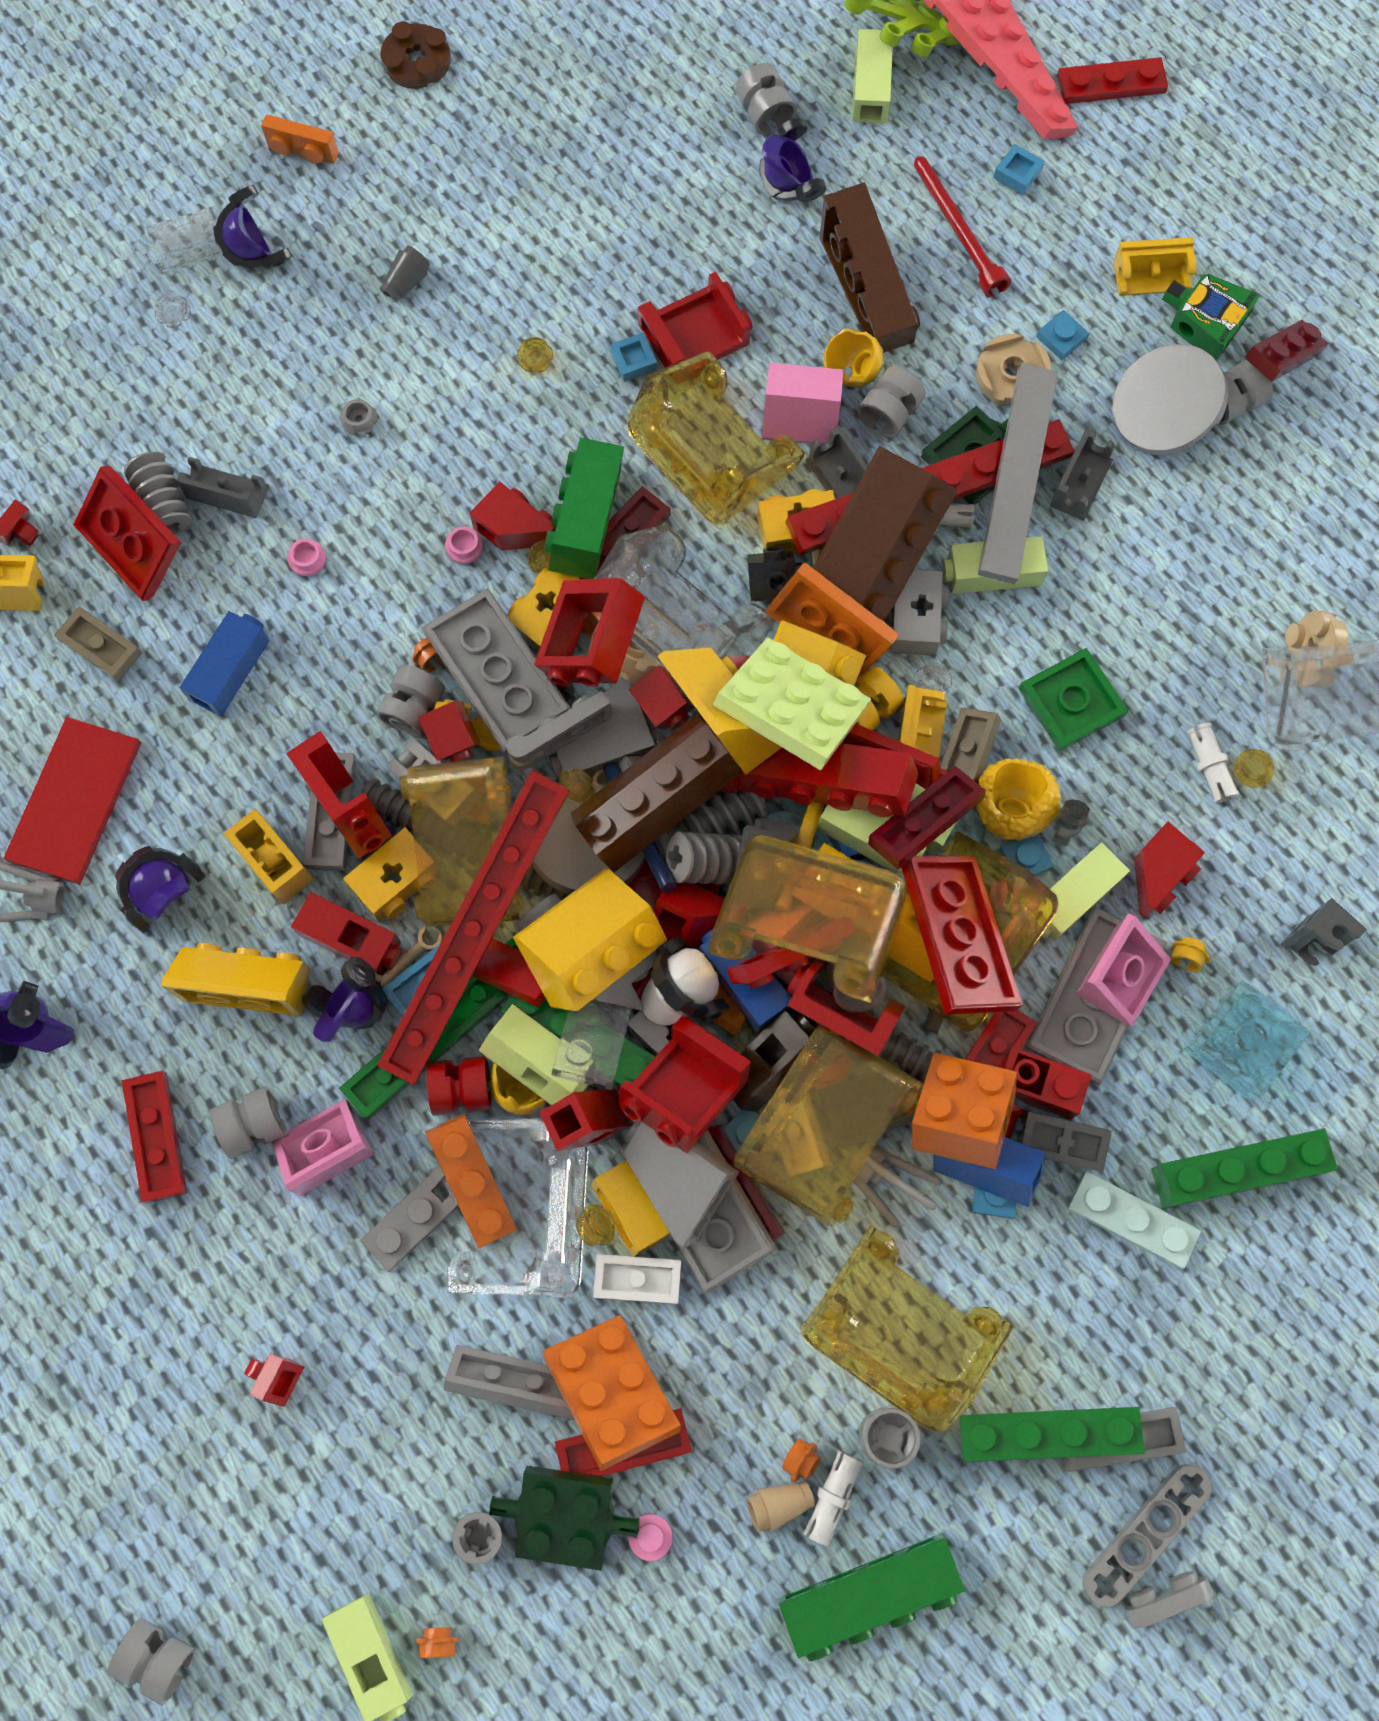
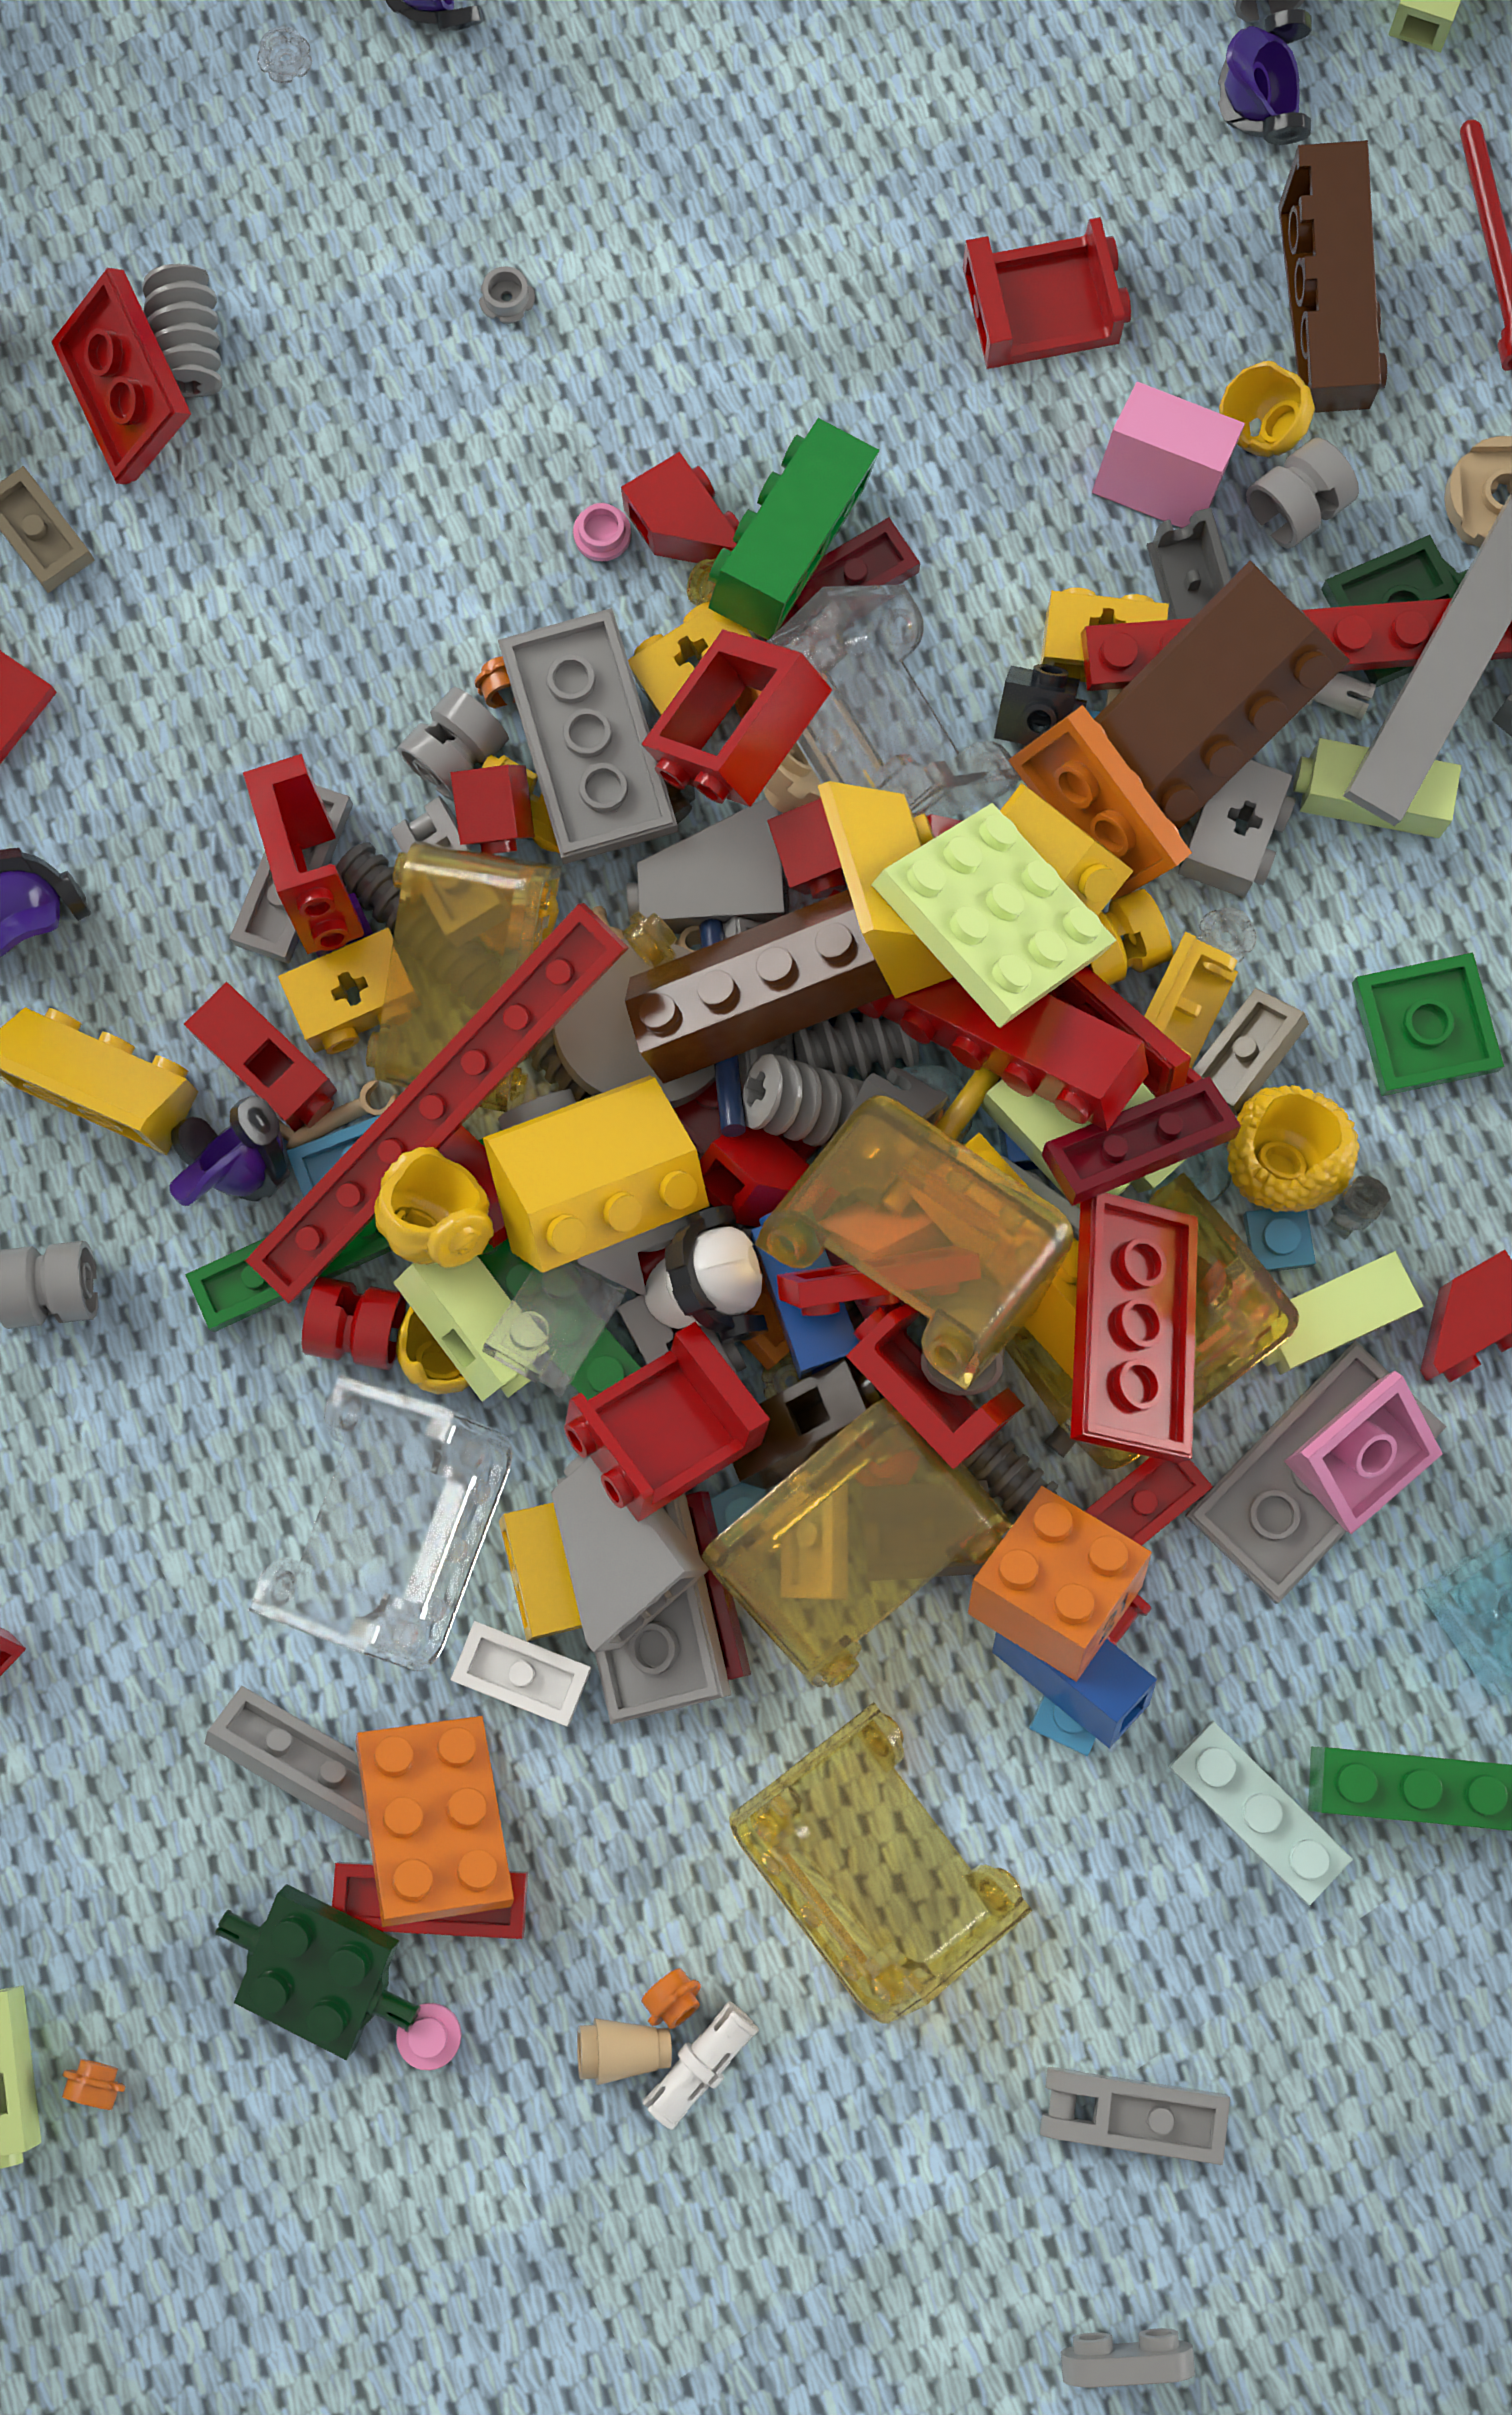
camera: 20 degrees right, 5 degrees up
(223, 489) = (279, 348): dark grey hinge -> none
(225, 662) = (207, 609): blue brick -> none
(269, 856) = (184, 912): yellow brick -> none
(306, 557) = (369, 485): bright pink plate -> none
(321, 1148) = (136, 1352): bright pink slope -> none
(405, 272) = (639, 92): dark grey cone -> none
(410, 1221) = (241, 1488): light grey plate -> none
(471, 1180) = (328, 1463): orange plate -> none
(477, 1538) = (187, 1961): light grey hat -> none
(493, 993) = (432, 1210): none -> yellow hair
(531, 347) = (793, 258): clear yellow plate -> none
(558, 731) = (648, 852): light grey plate -> none
(585, 1119) = (509, 1427): red brick -> none
(595, 1225) = (486, 1580): clear yellow plate -> none
(633, 357) = (939, 315): dark azure plate -> none
(704, 442) = (1003, 474): clear yellow windscreen -> none
(871, 1596) = (707, 2218): green brick -> none
(877, 1167) = (909, 1624): light grey plant -> none
(889, 1437) = (804, 2008): light grey wheel -> none
(1048, 1083) = (1196, 1578): red slope -> none
(1052, 1434) = (1035, 2080): green brick -> none
(1066, 1140) = (1196, 1668): dark grey hinge -> none
(1153, 1541) = (1134, 2270): light grey beam -> none
(1192, 950) = (1477, 1450): yellow plate -> none

